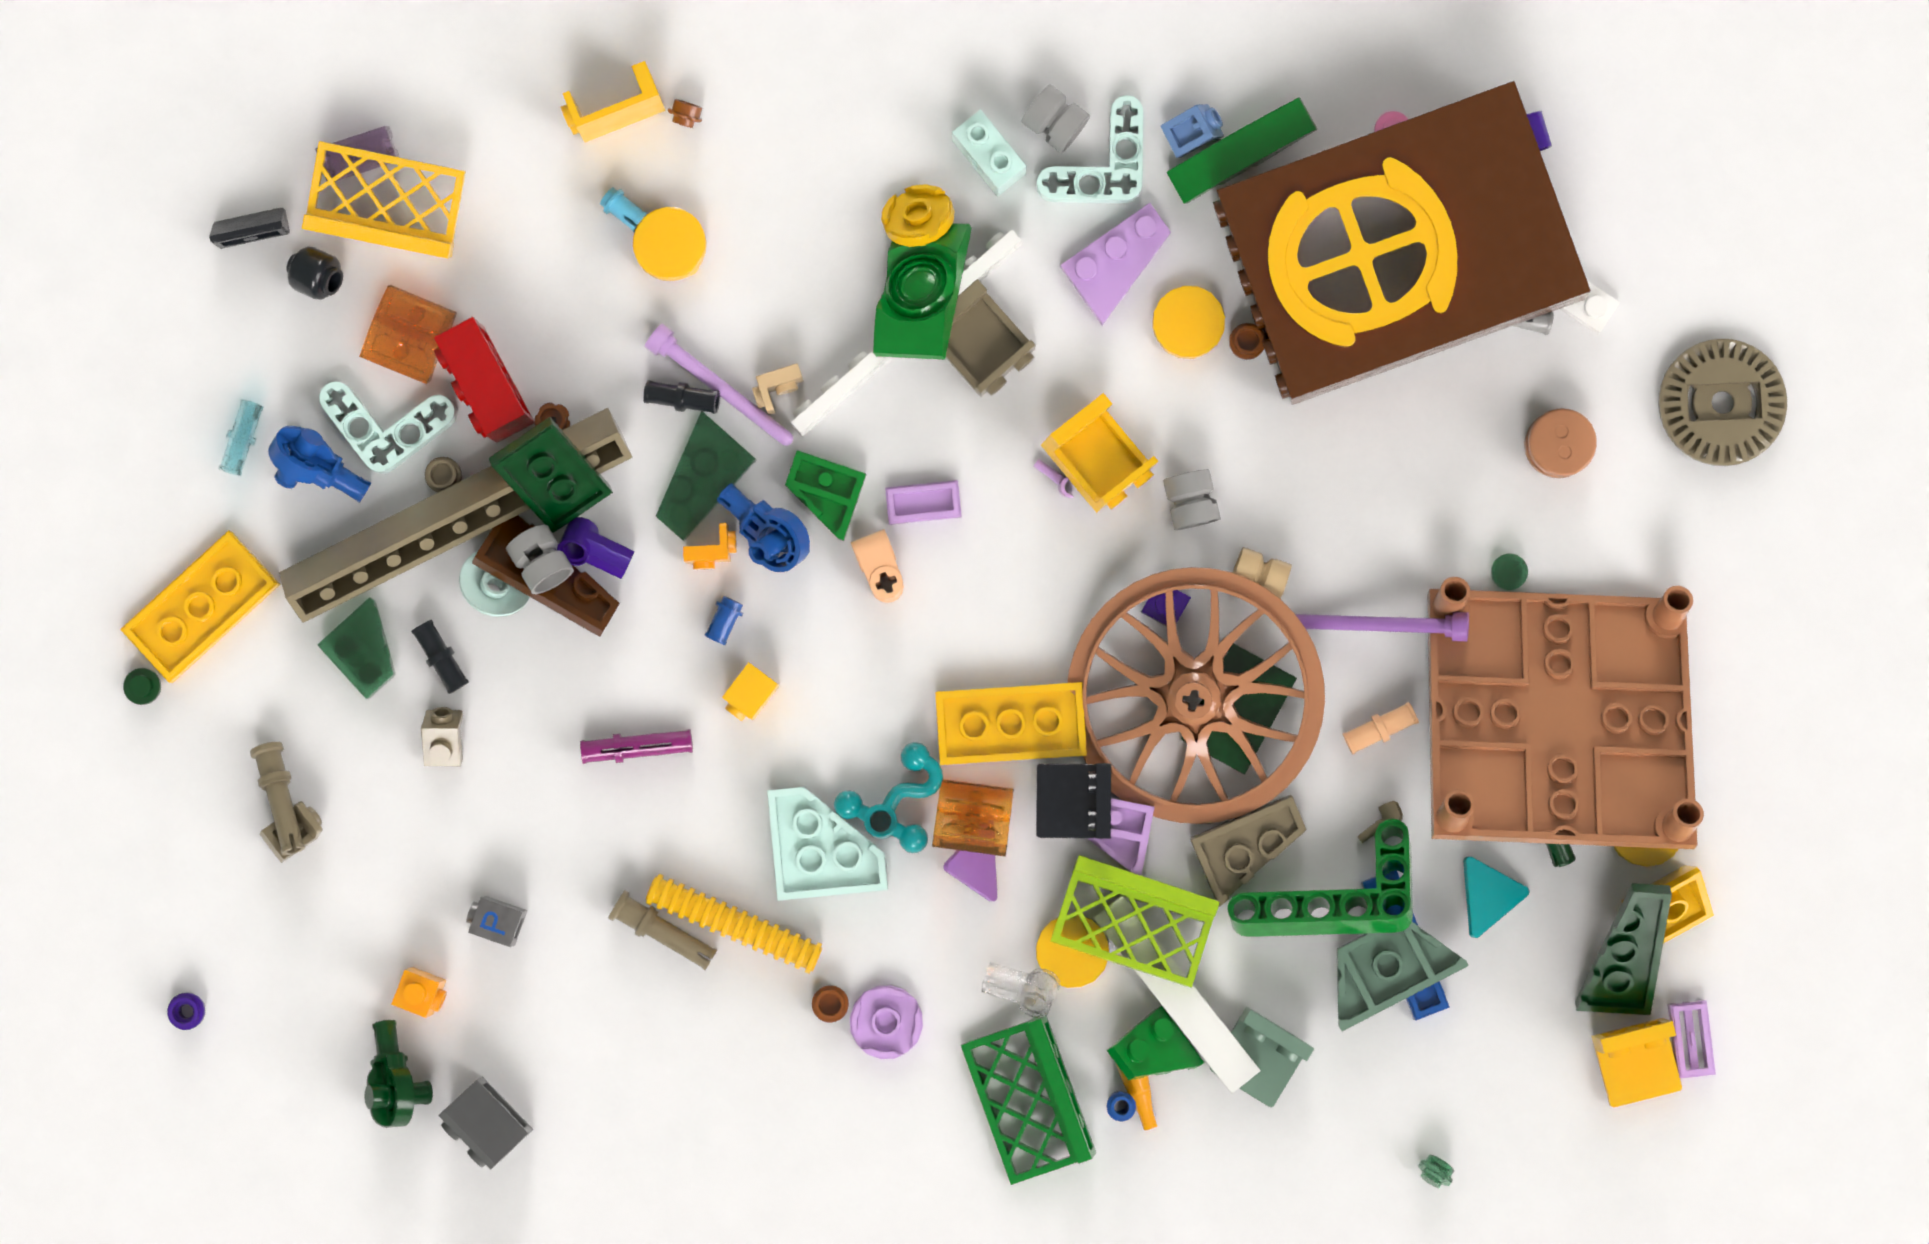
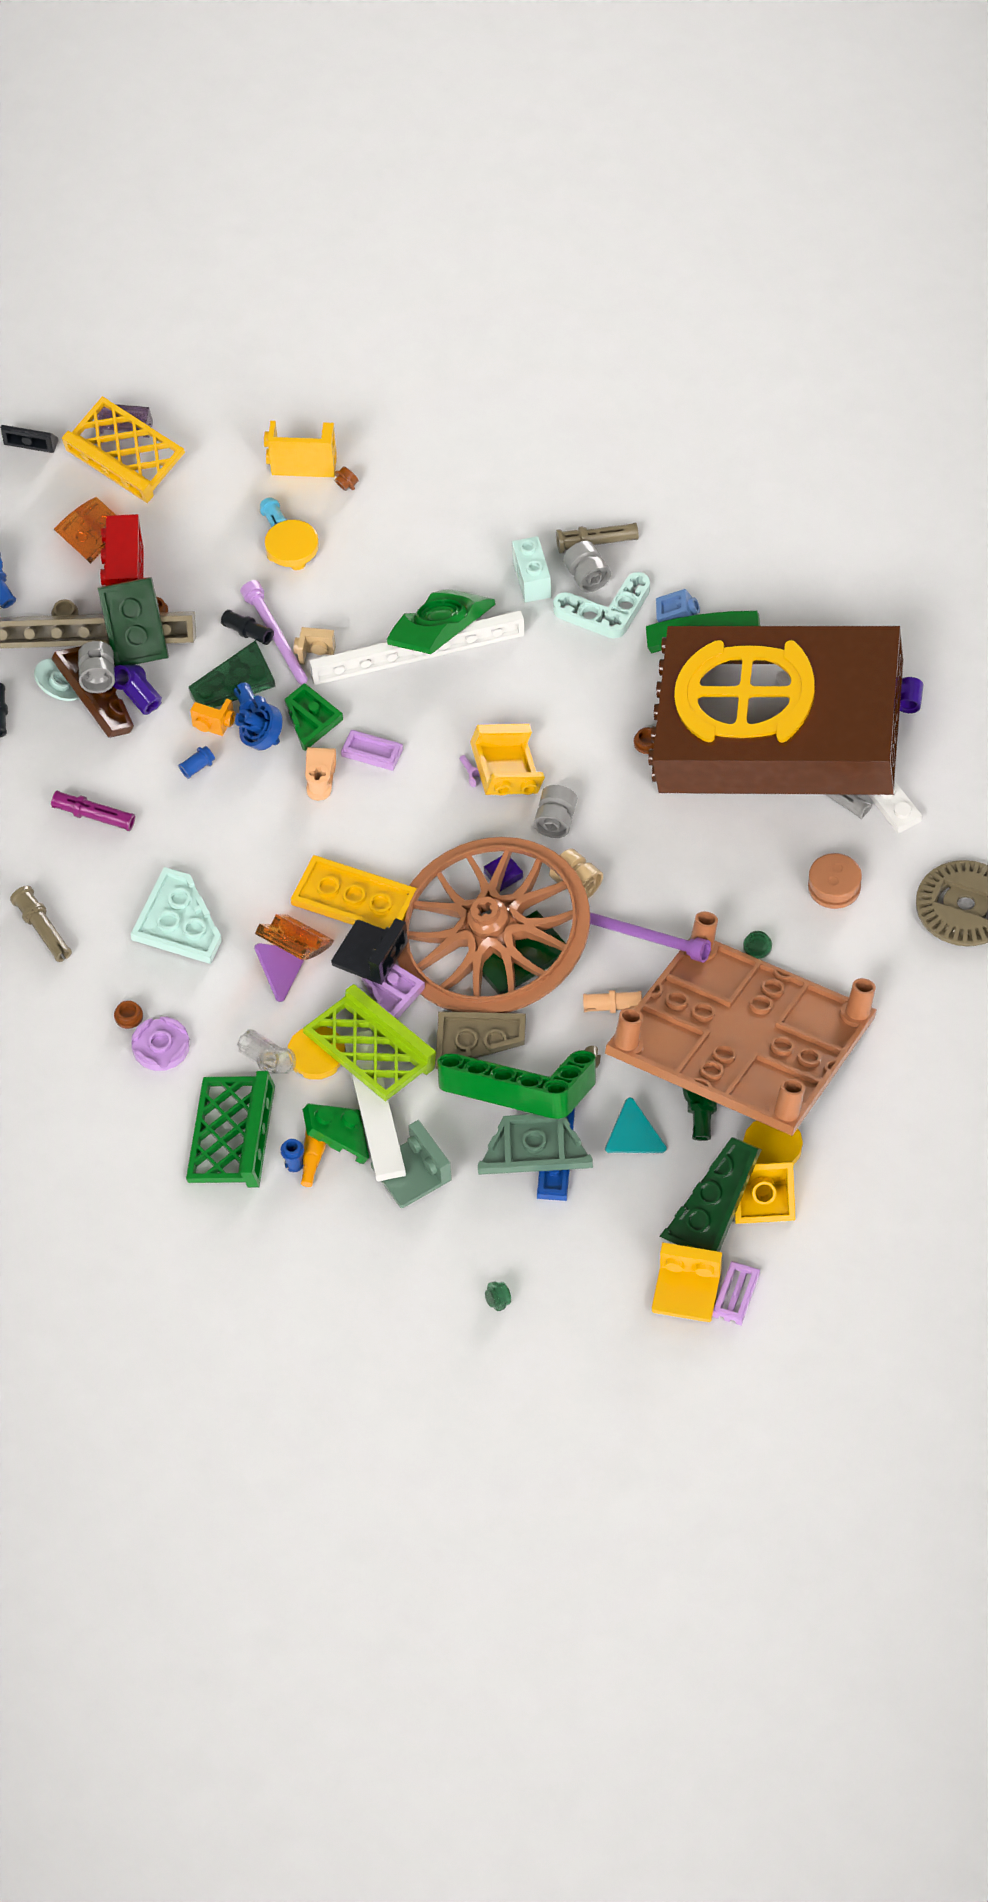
camera: 30 degrees right, 30 degrees down
(314, 273) = (54, 473): black head -> none
(376, 436) = (37, 578): light aqua beam -> none
(733, 923) = (93, 938): yellow piece -> none
(749, 693) = (188, 807): yellow brick -> none
(911, 837) = (233, 912): teal piece -> none
(918, 215) = (463, 585): yellow tile -> none
(985, 342) = (465, 670): dark tan panel -> none
(1023, 69) = (597, 536): none -> dark tan pin
(1115, 260) = (577, 664): lavender wing -> none
(1188, 322) = (613, 716): yellow tile -> none

